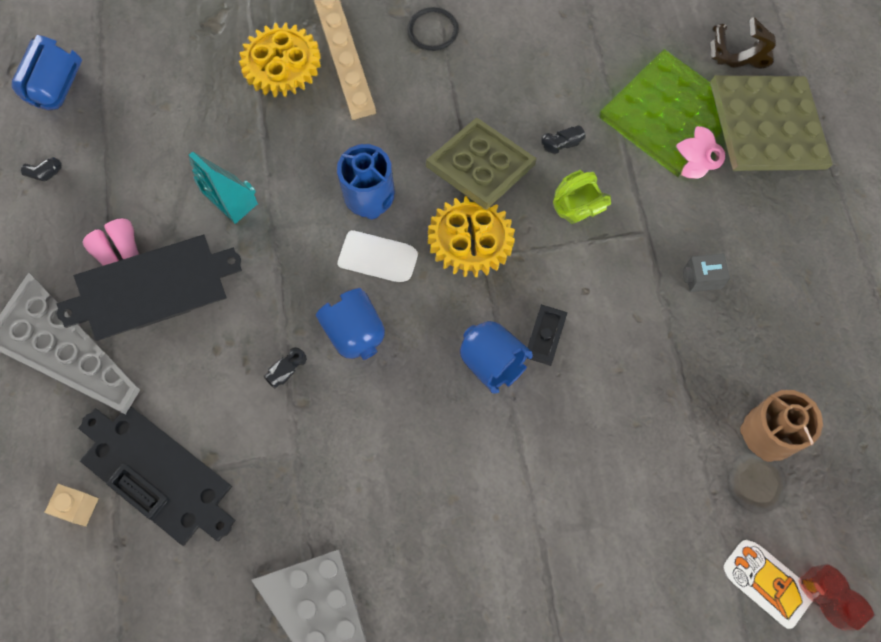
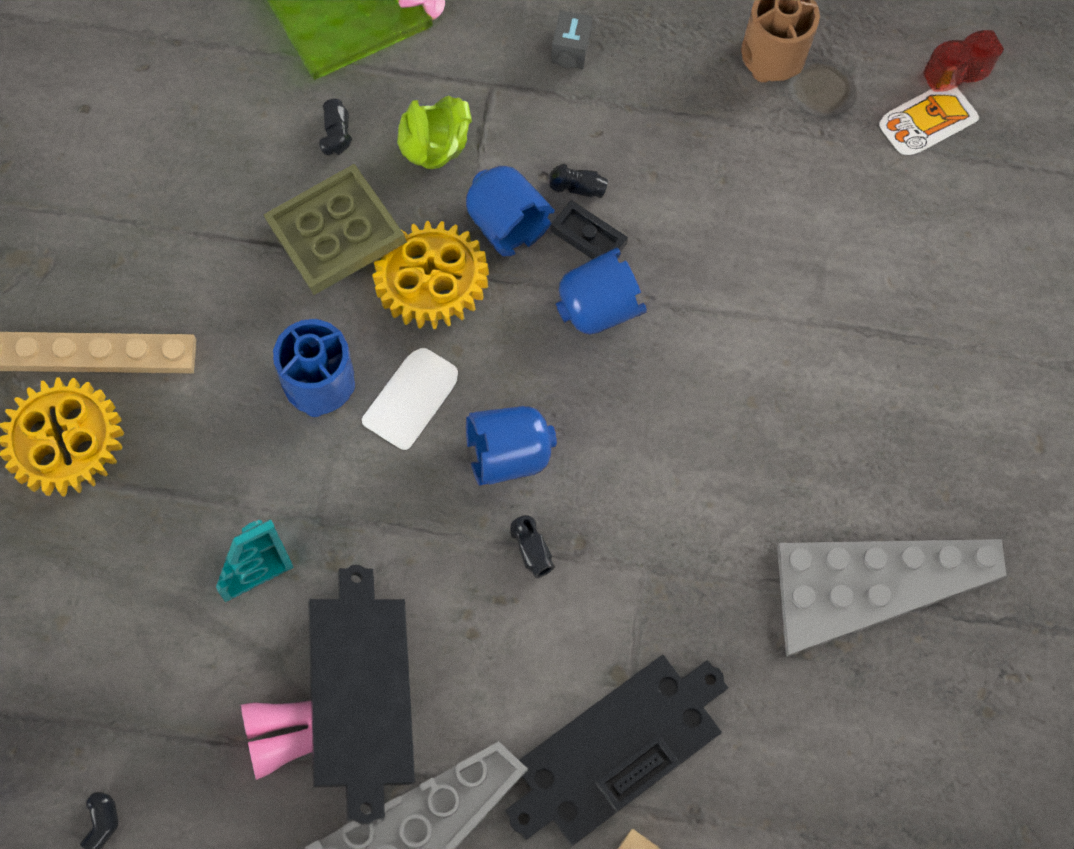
camera: 80 degrees left, 0 degrees up
(428, 10) = (95, 258): black tyre -> none
(538, 268) = (507, 209): none -> blue cylinder
(586, 314) = (579, 182): none -> black arm

